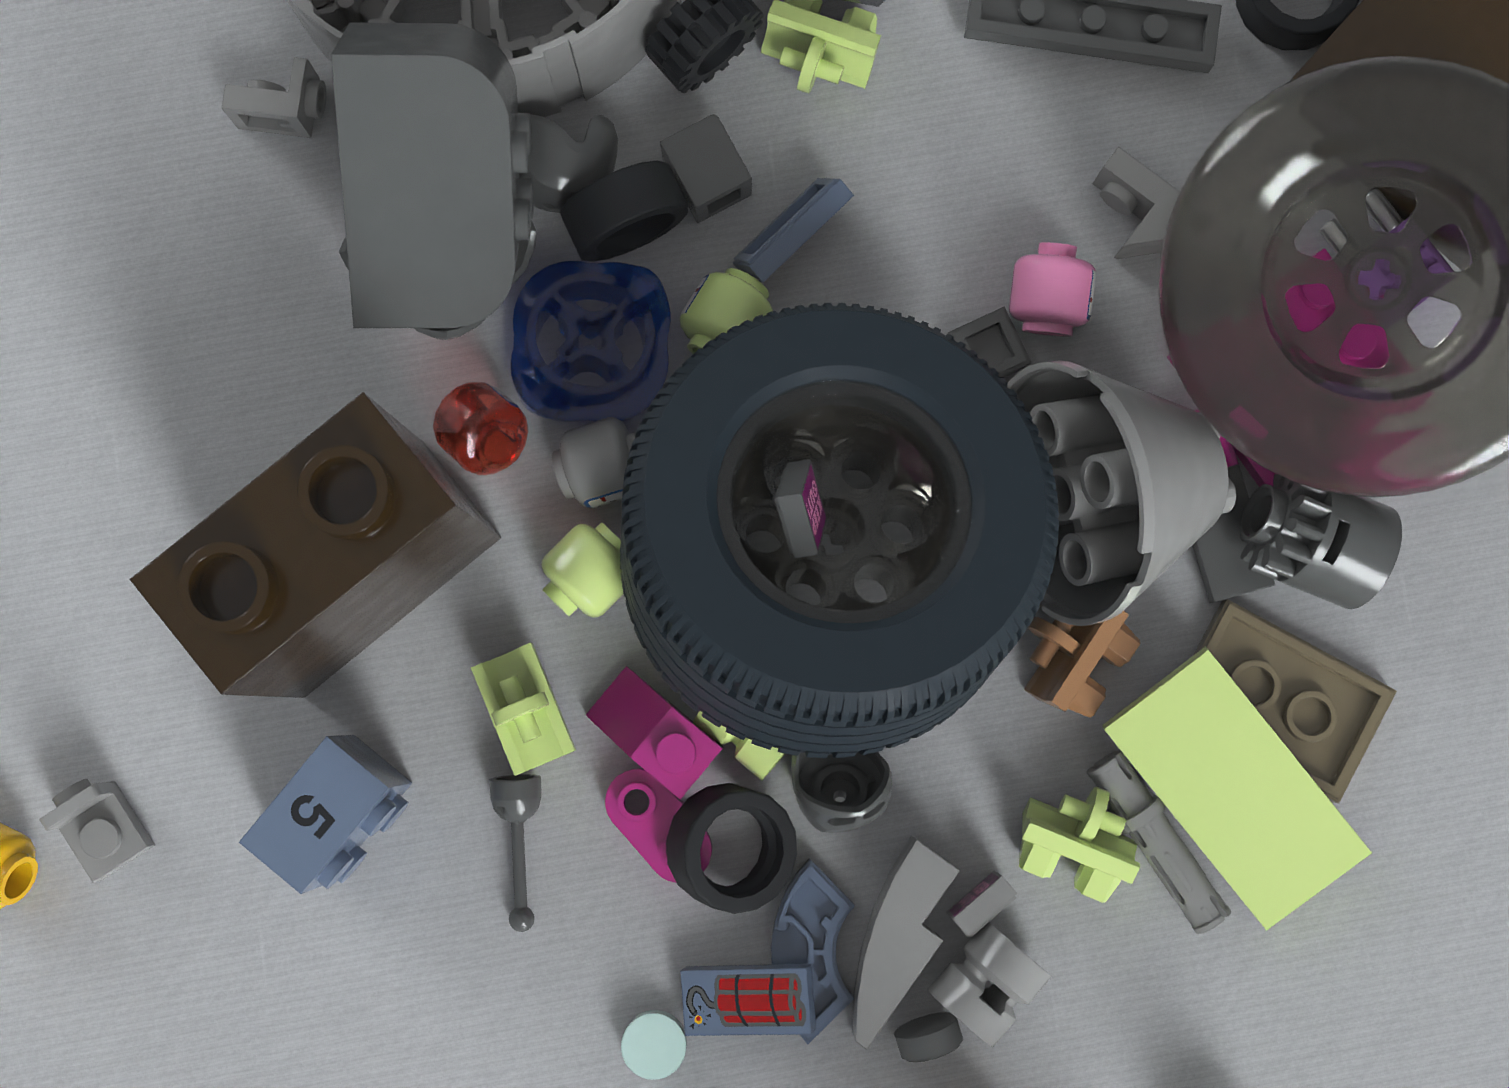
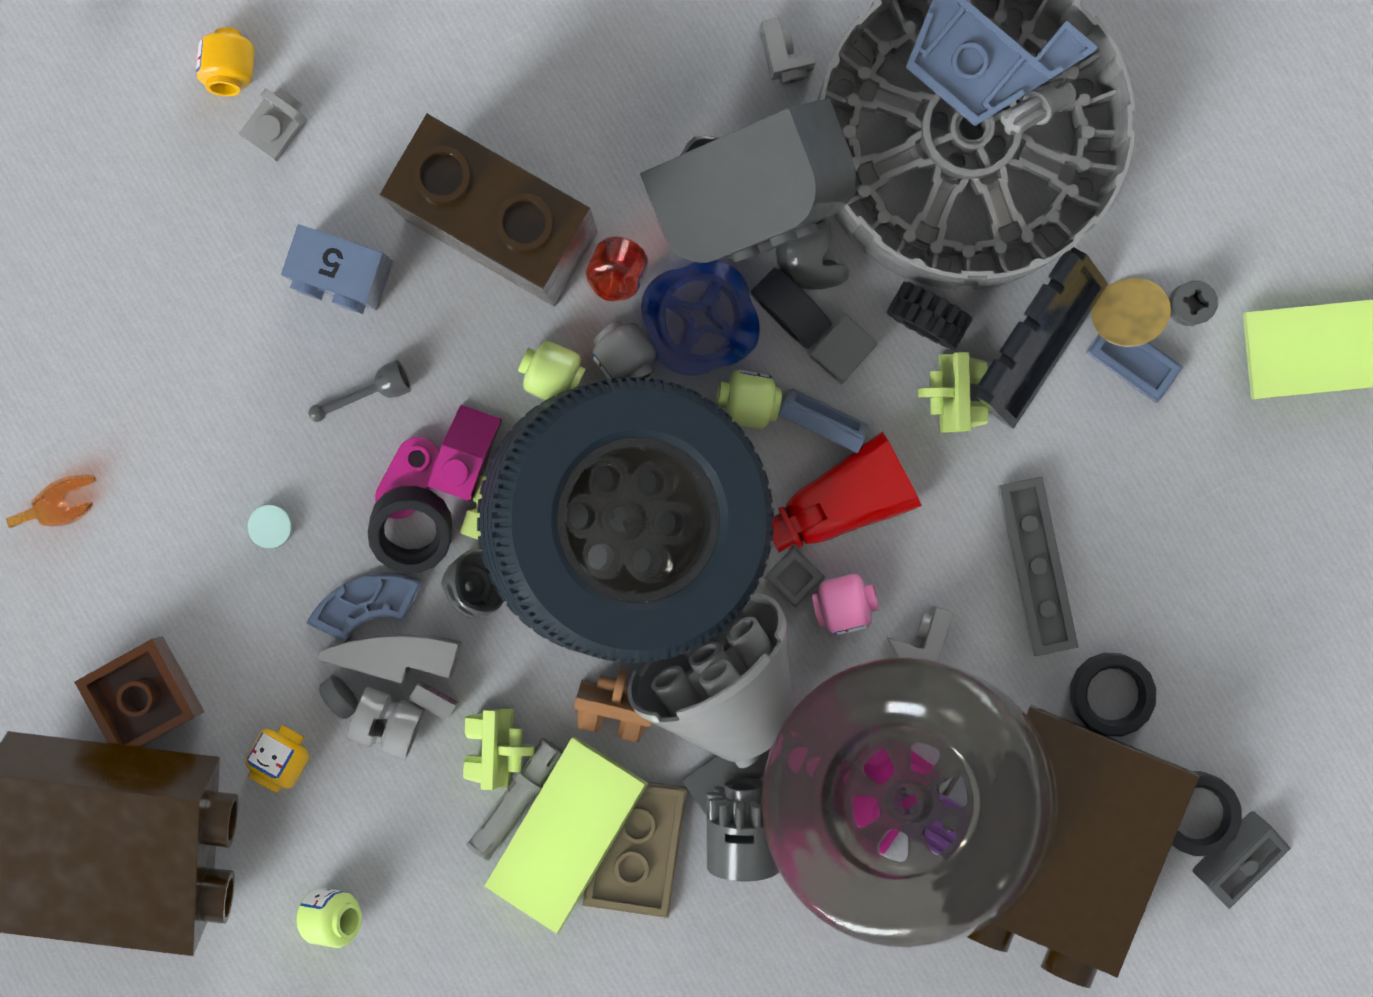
camera: 70 degrees right, 5 degrees up
(523, 709) = (448, 365): yellowish green hips -> none
(748, 1000) = (319, 575): tile -> none
(801, 509) = (625, 495): dark grey tile -> none
(907, 222) = (847, 497): none -> red piece

